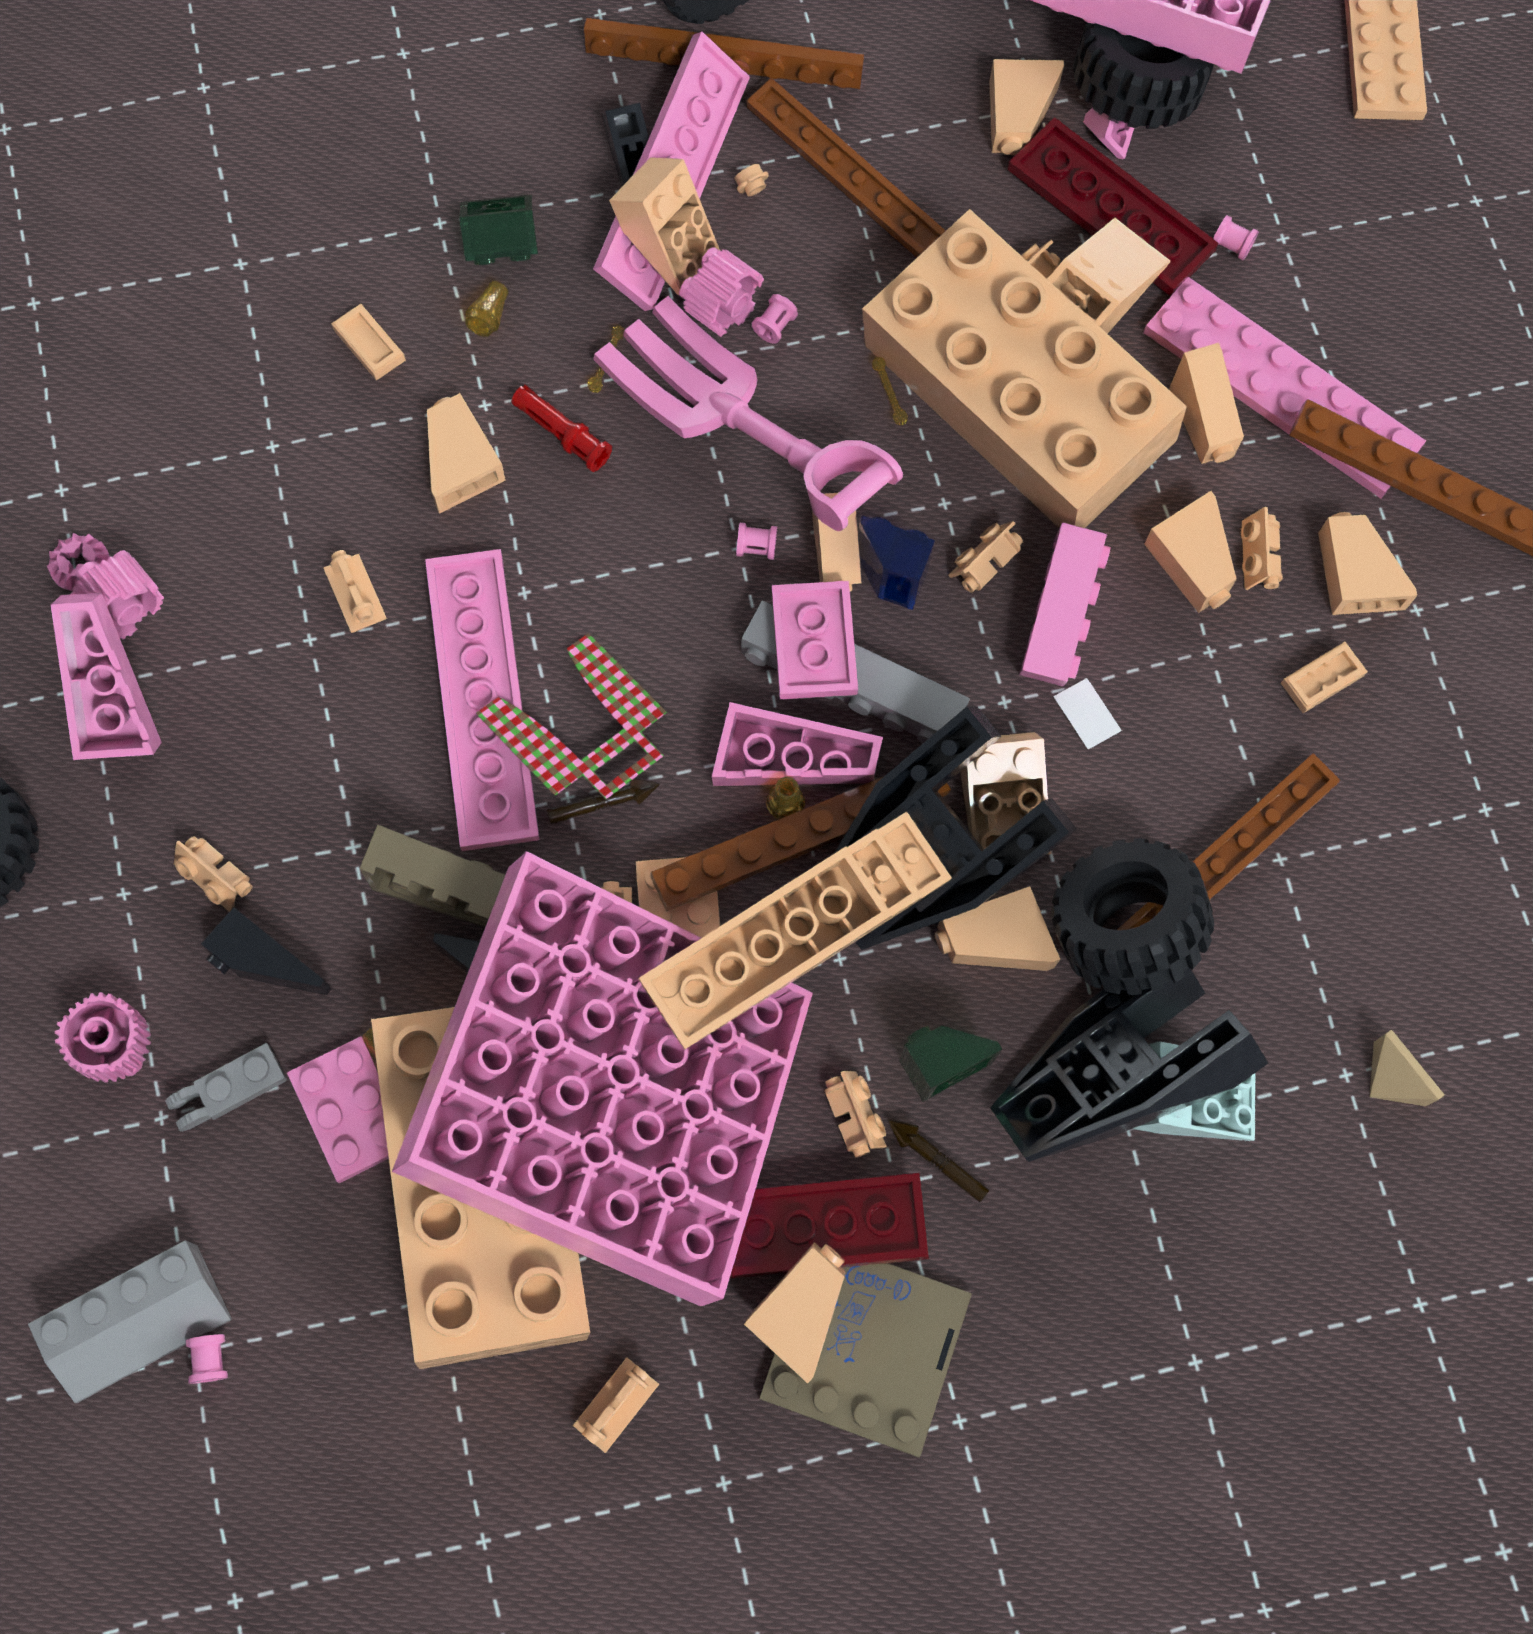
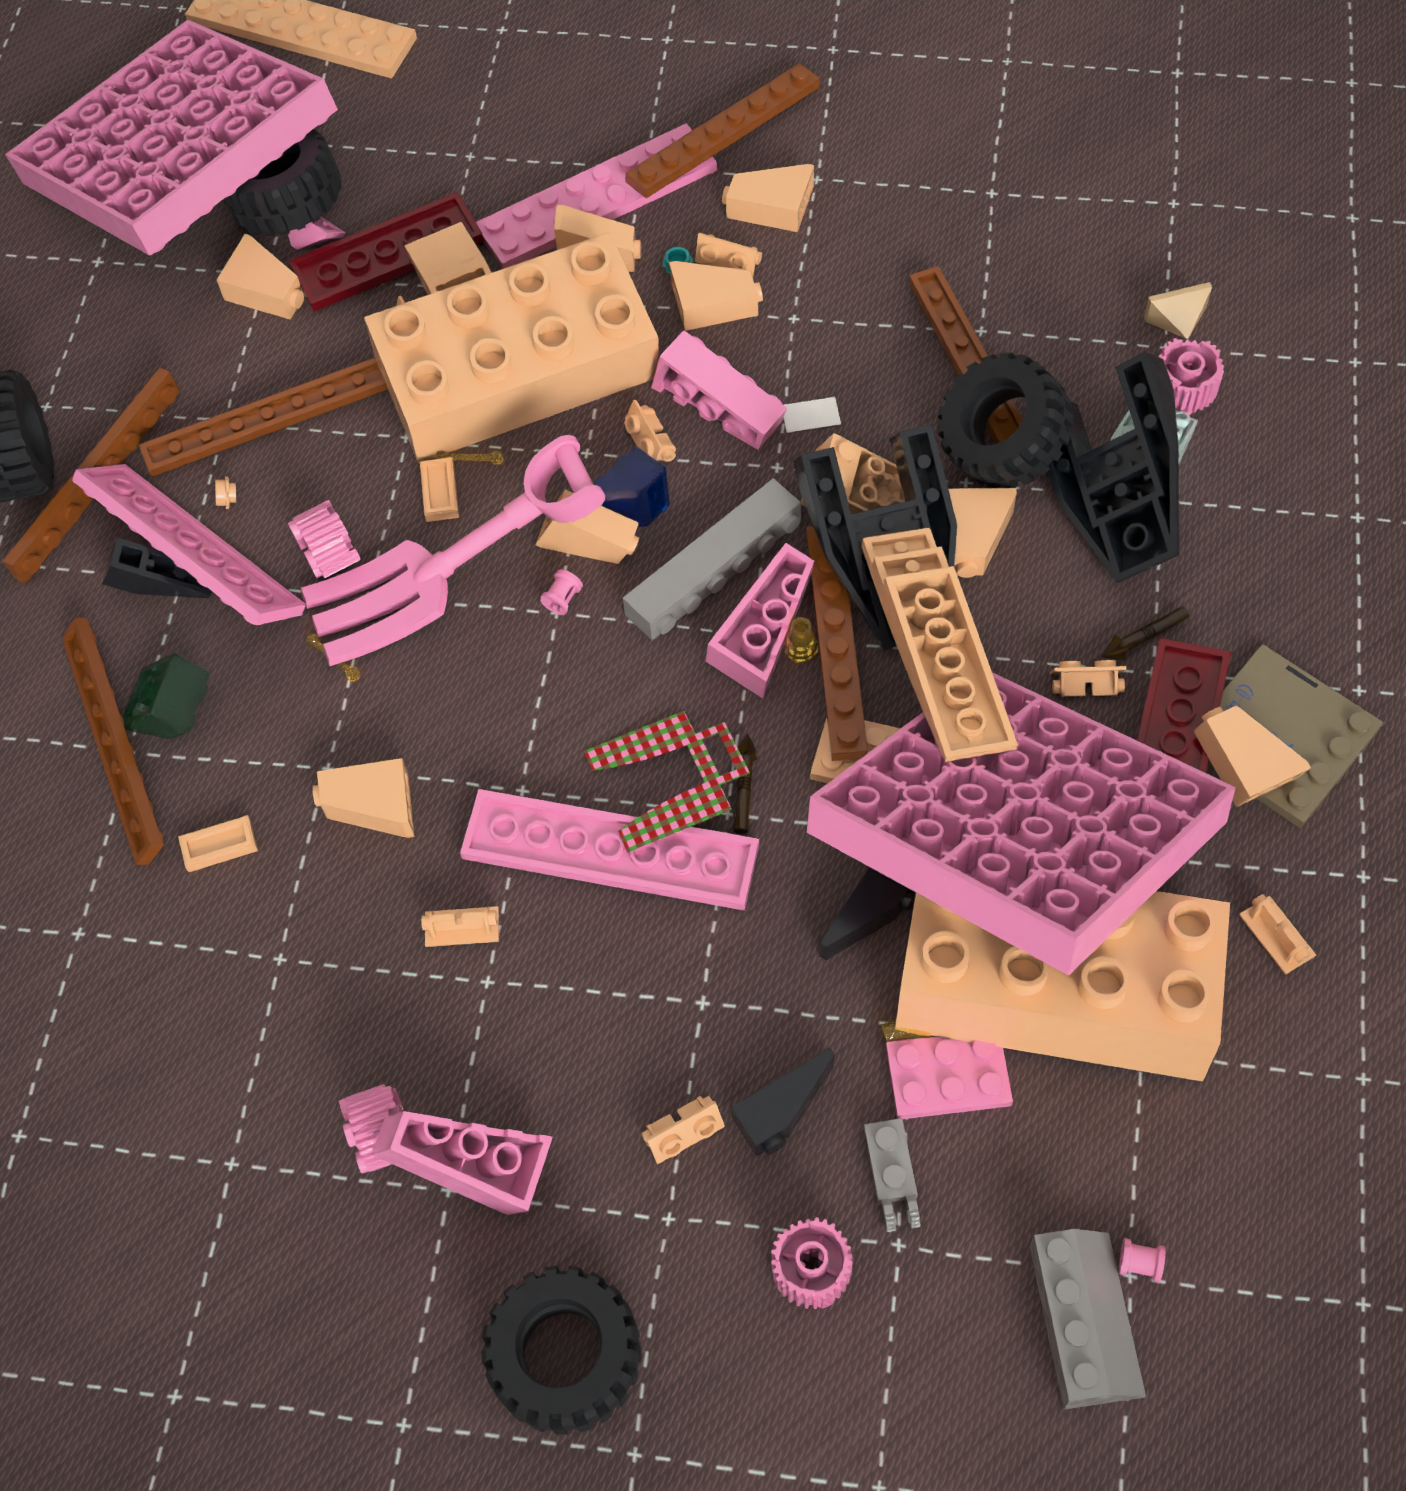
camera: 60 degrees left, 10 degrees down
(62, 569) = (317, 1181): bright pink gear -> none
(428, 211) = (112, 742): none -> dark orange plate
(430, 877) = (775, 923): dark tan wedge -> none
(486, 311) = (241, 734): clear yellow cone -> none
(573, 436) = (397, 701): red pin -> none
(665, 219) = (238, 553): light nougat slope -> none
(774, 318) = (364, 515): bright pink bush -> none
(814, 640) = (678, 566): bright pink plate -> none
(838, 377) = (439, 489): none -> light nougat tile
(944, 1058) = (1071, 594): clear green slope -> none
(1234, 496) = (676, 254): none -> teal plate
(1235, 237) = (457, 180): bright pink bush -> none
(1322, 1104) = (1193, 373): none -> bright pink brick
(1324, 677) = (849, 250): light nougat plate -> none

